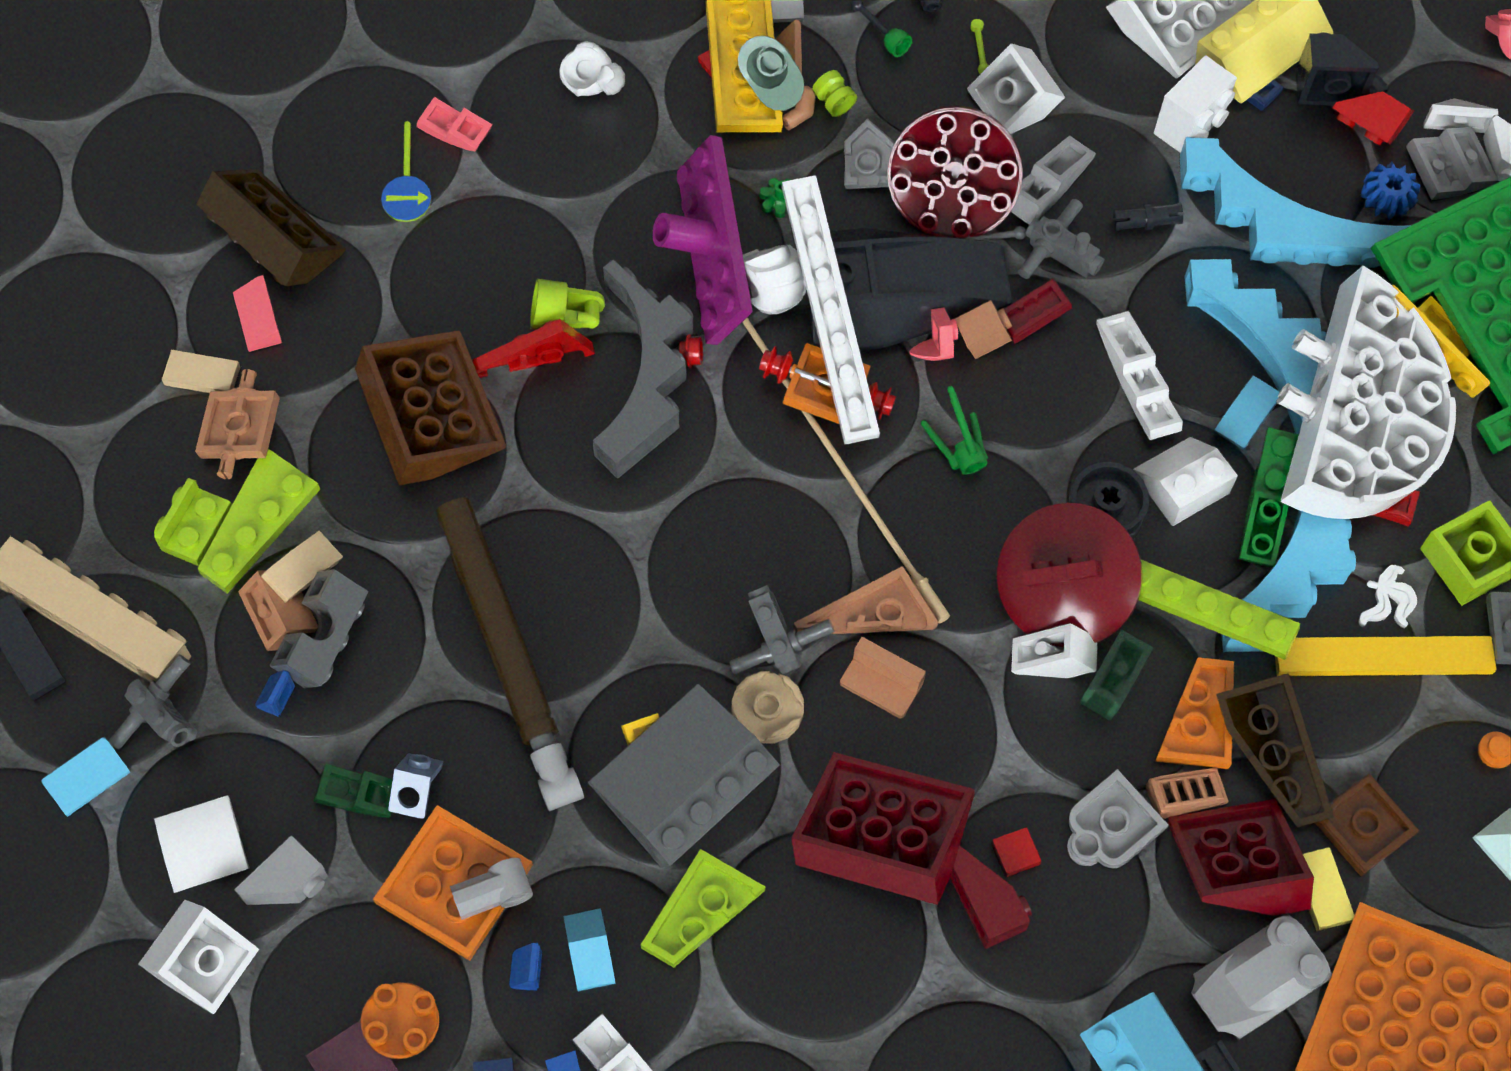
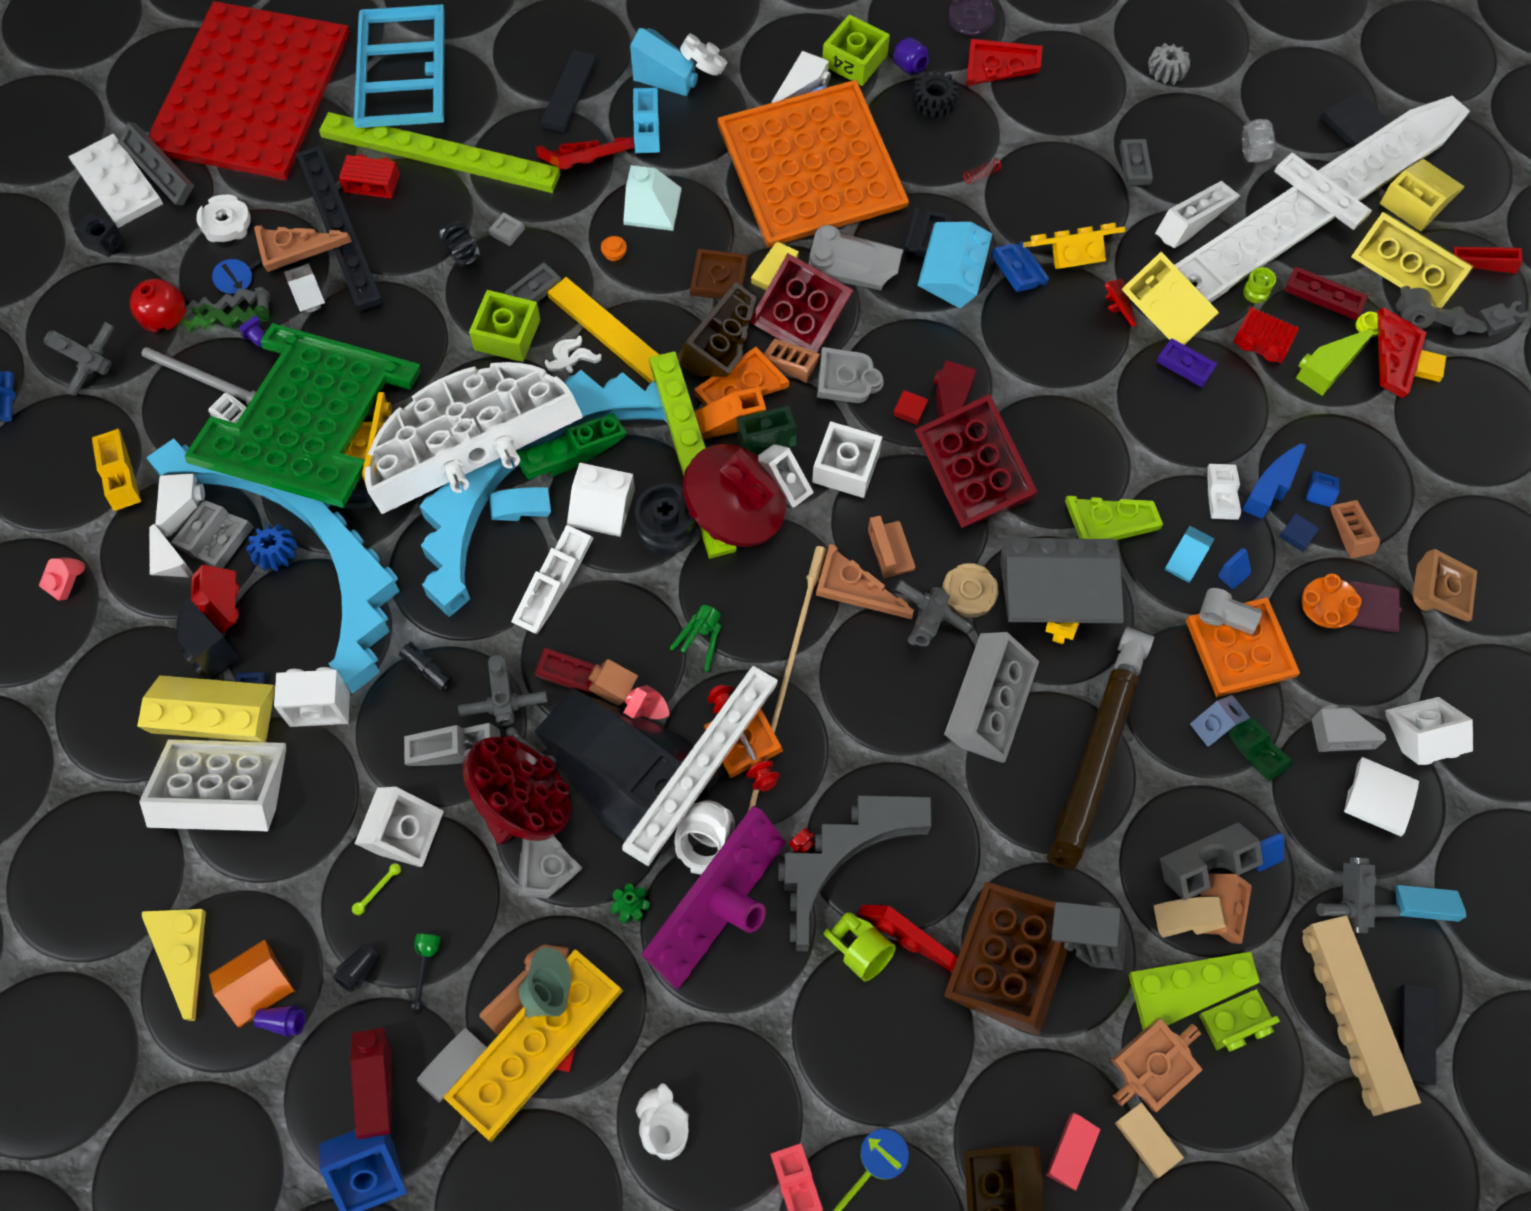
camera: 135 degrees left, 0 degrees up
(369, 452) = (1093, 931): none -> dark grey wedge
(648, 613) = (992, 696): none -> light grey slope
(836, 95) = (514, 941): lime wheel -> none
(1011, 717) = (847, 459): none -> white brick
(1169, 664) = (721, 415): none -> orange slope

